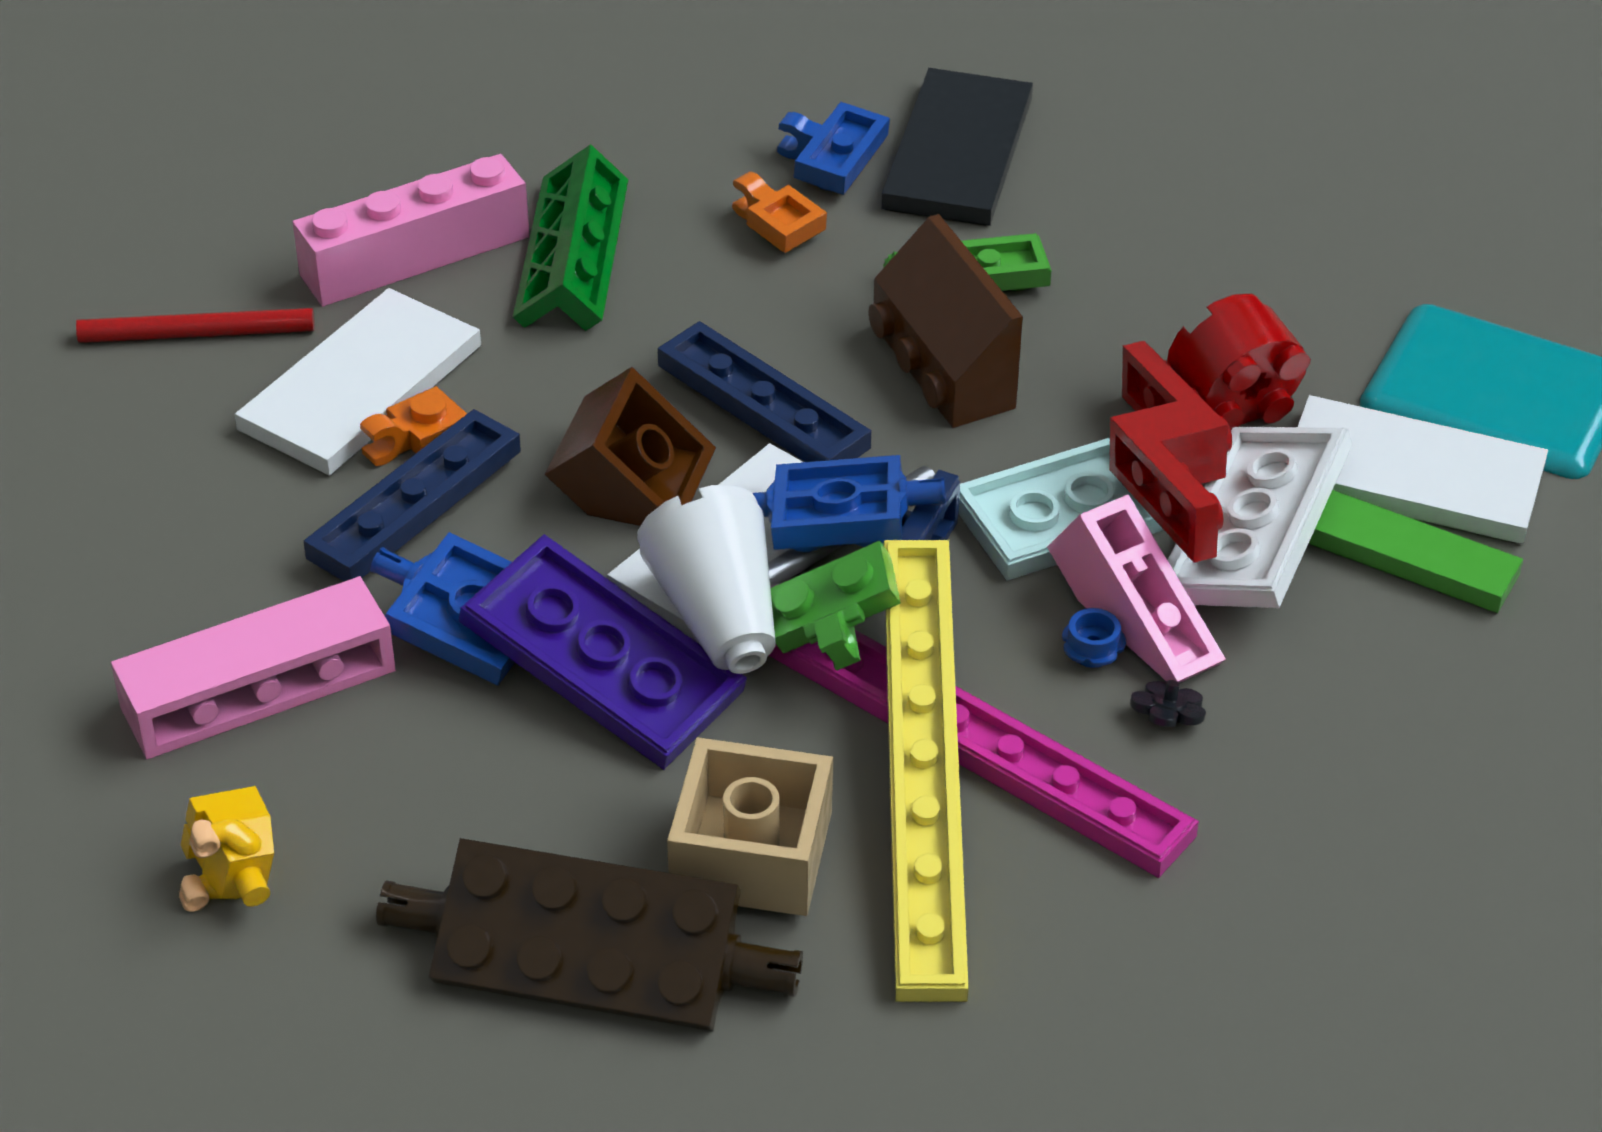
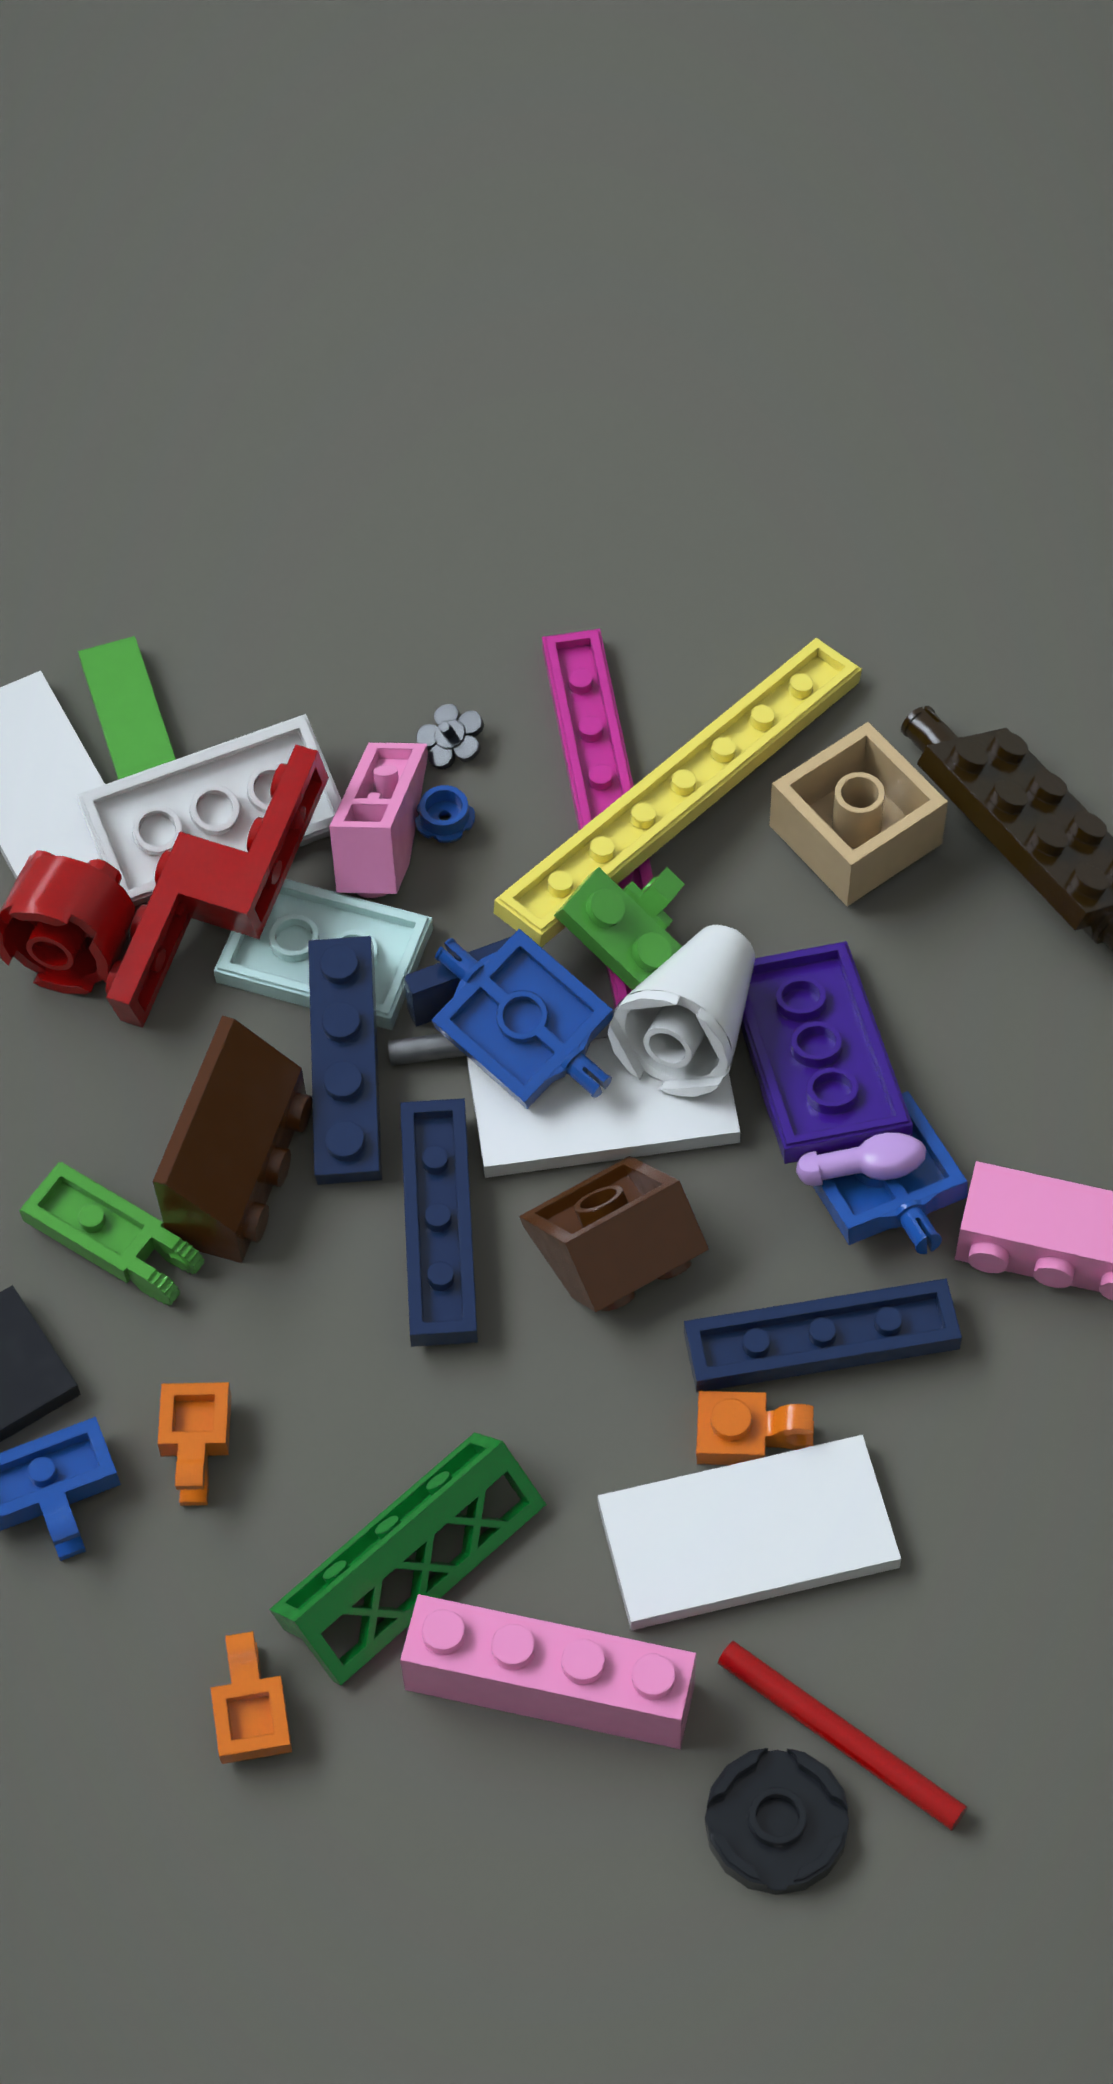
camera: 135 degrees left, 15 degrees up
(200, 271) = (777, 1820): none -> black tile
(466, 578) = (879, 1158): none -> lavender piece
(577, 125) = (250, 1710): none -> orange plate
(950, 439) = (344, 1060): none -> dark blue plate

